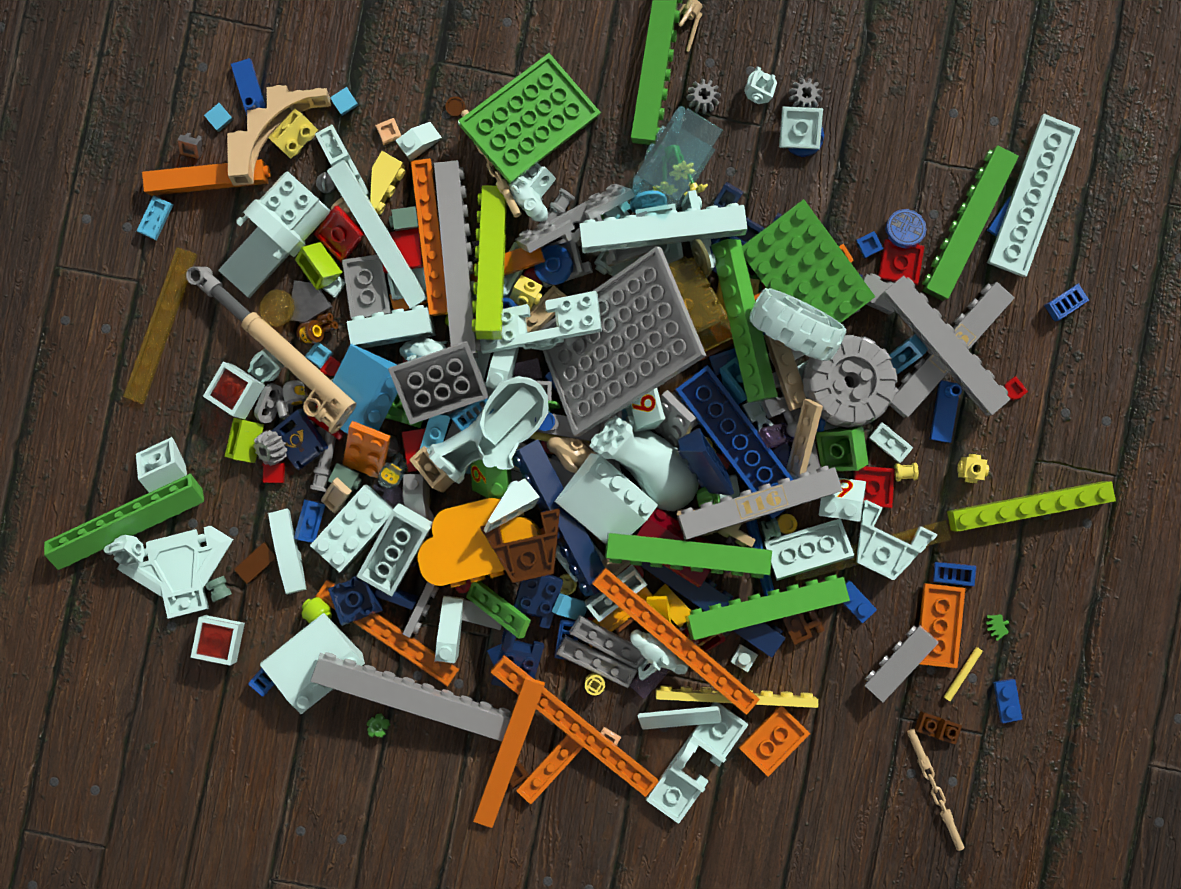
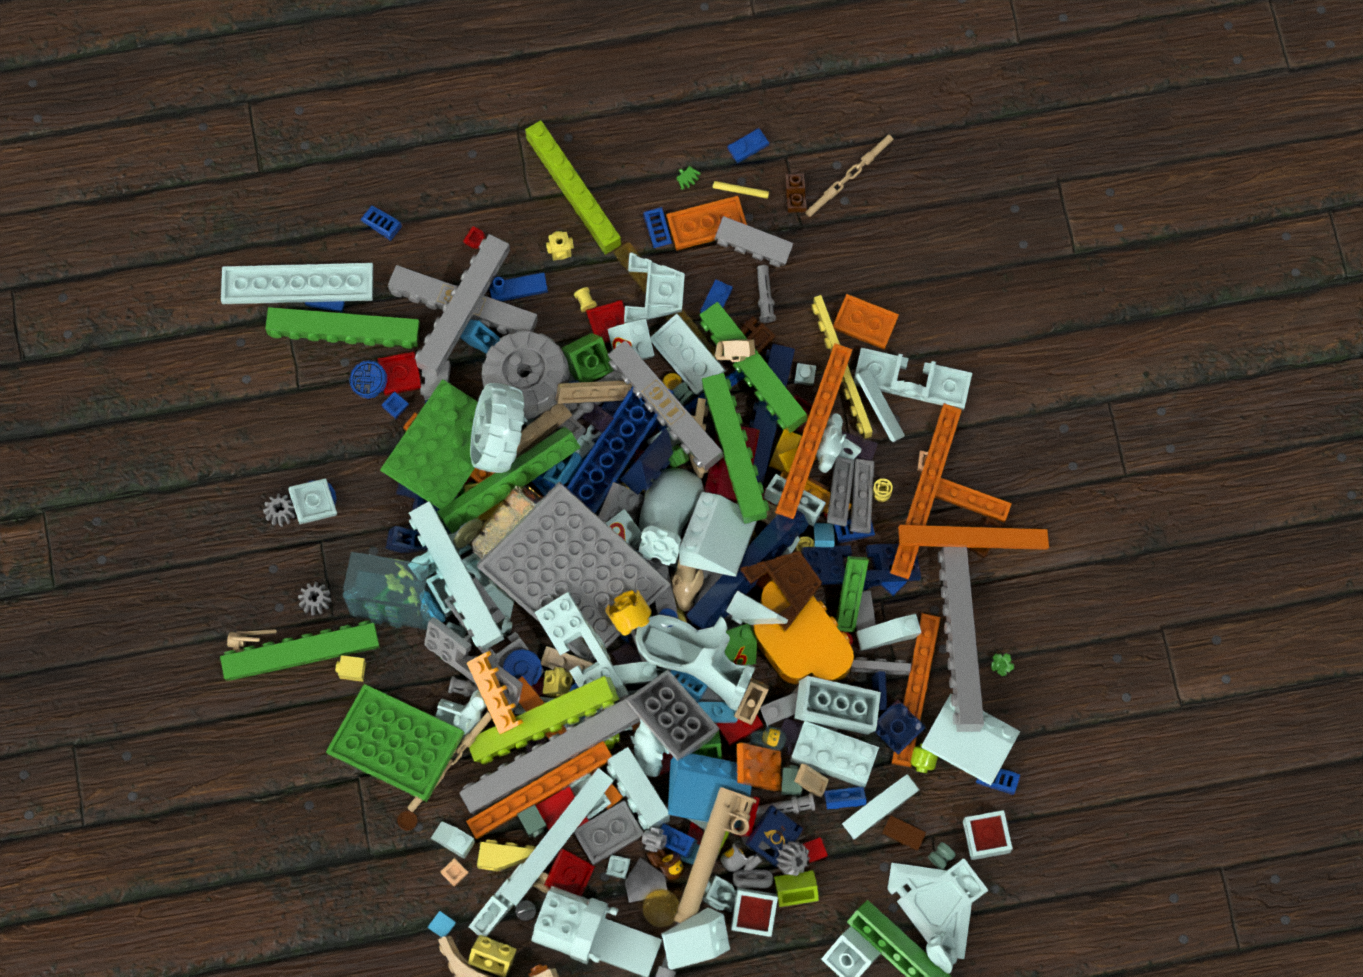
camera: 115 degrees left, 15 degrees down
(226, 325) = (696, 939): none -> light aqua slope
(318, 265) = (607, 883): lime brick -> none
(331, 345) = (678, 841): none -> blue plate
(337, 323) = (654, 839): none -> light grey gear
(532, 221) = (493, 693): none -> light orange hinge
(559, 382) = (629, 612): none -> yellow brick
(620, 106) = (351, 668): none -> light yellow brick
(760, 86) = (286, 551): light aqua hand -> none
(789, 596) = (735, 348): none -> tan piece
(834, 650) = (766, 302): none -> light grey pin
(890, 442) = (564, 322): light aqua plate -> none

